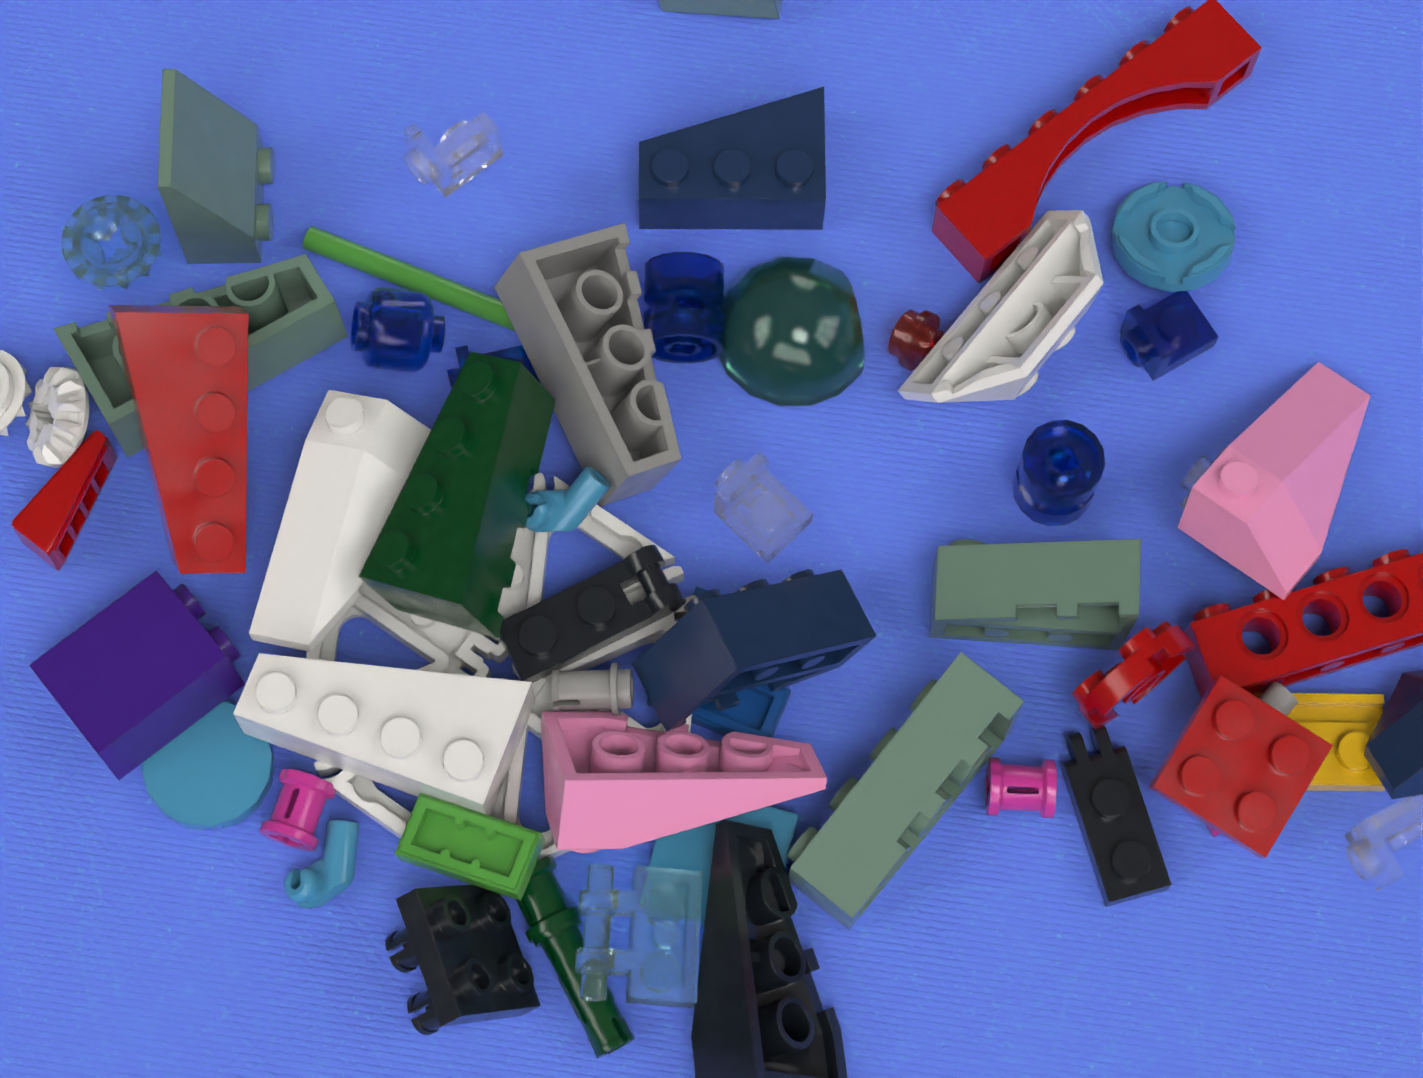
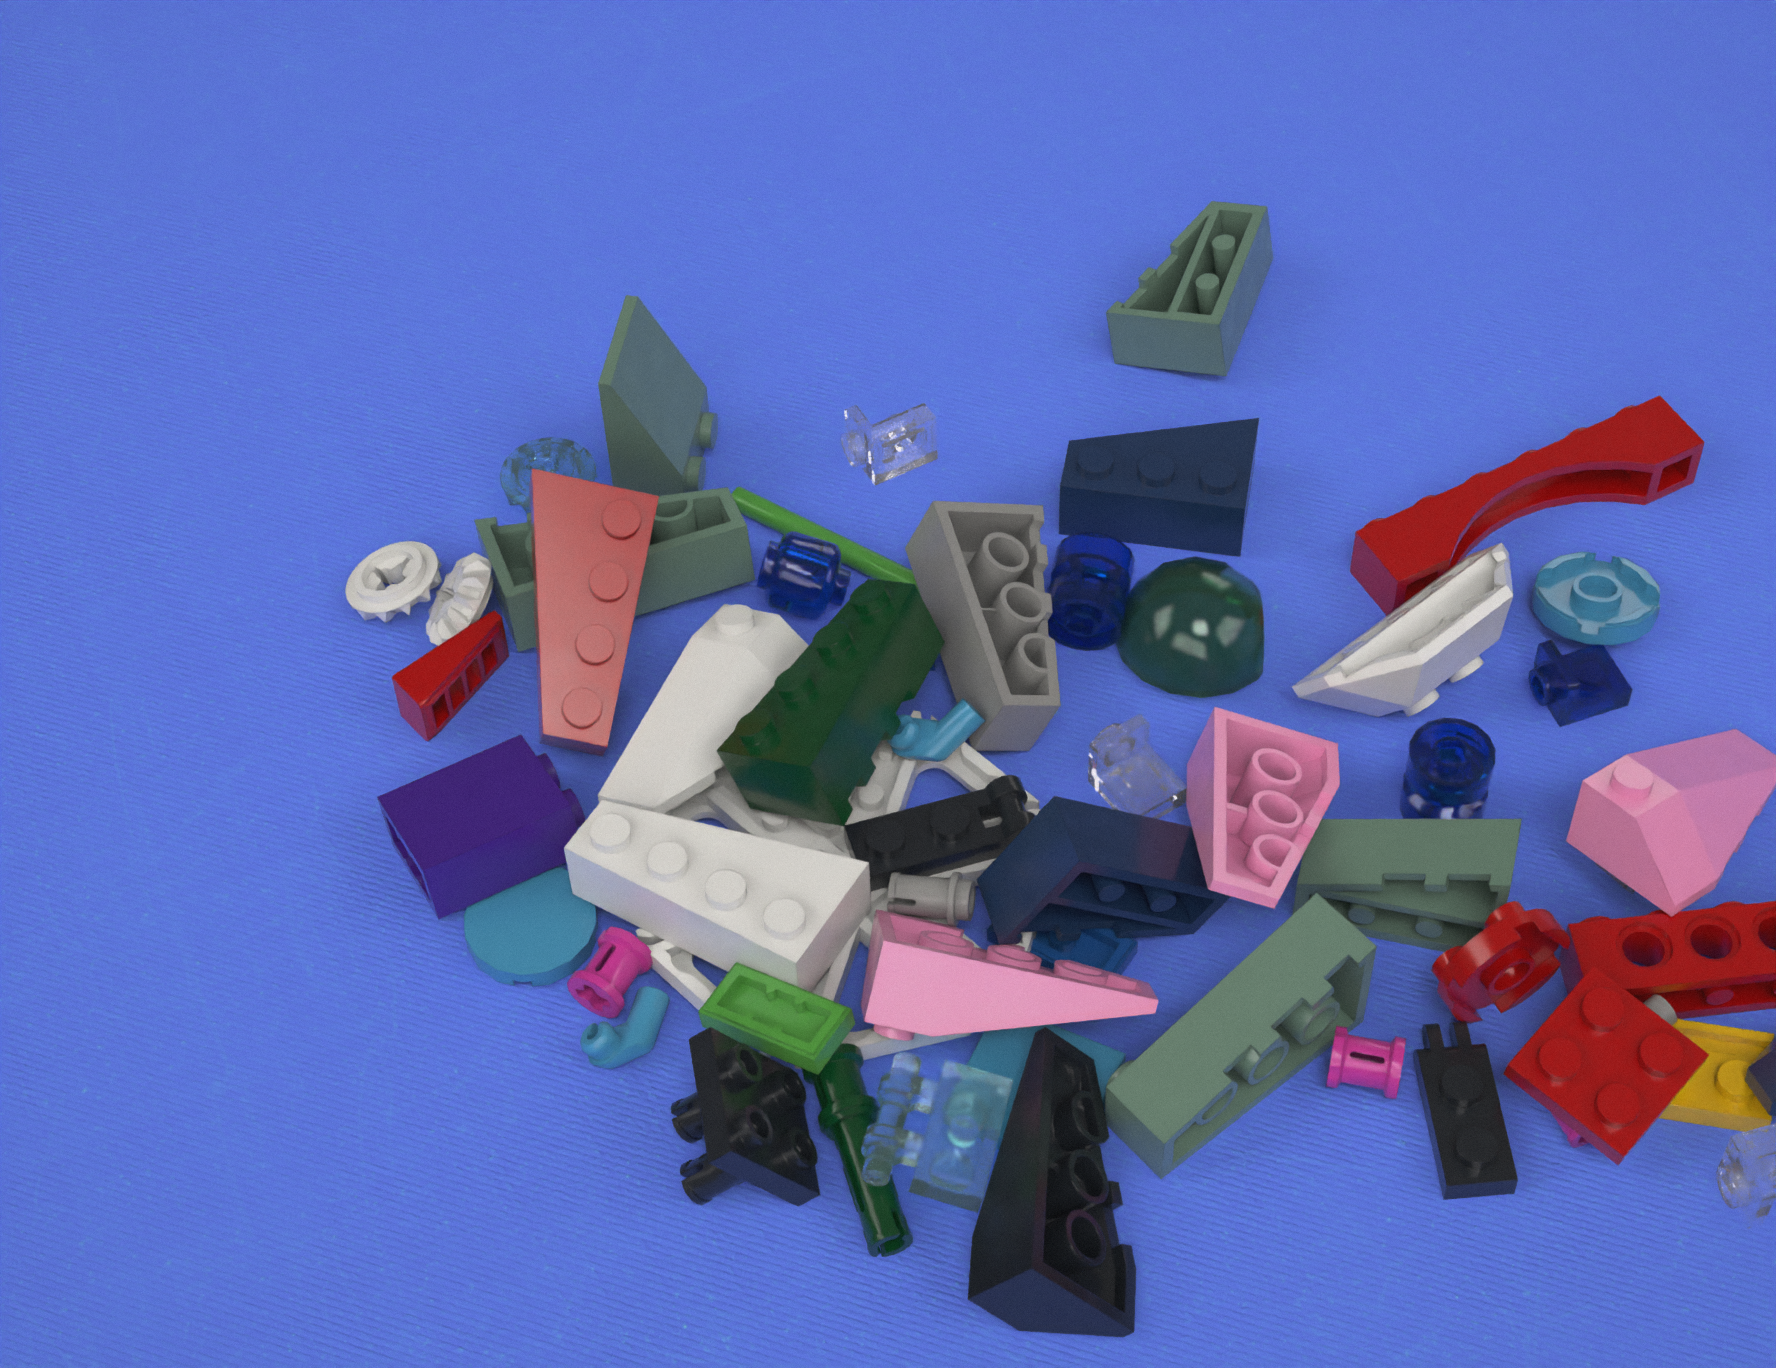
camera: 15 degrees right, 20 degrees down
(885, 544) = (1256, 802): none -> bright pink wedge
(914, 337) = (1315, 645): clear red plate -> none

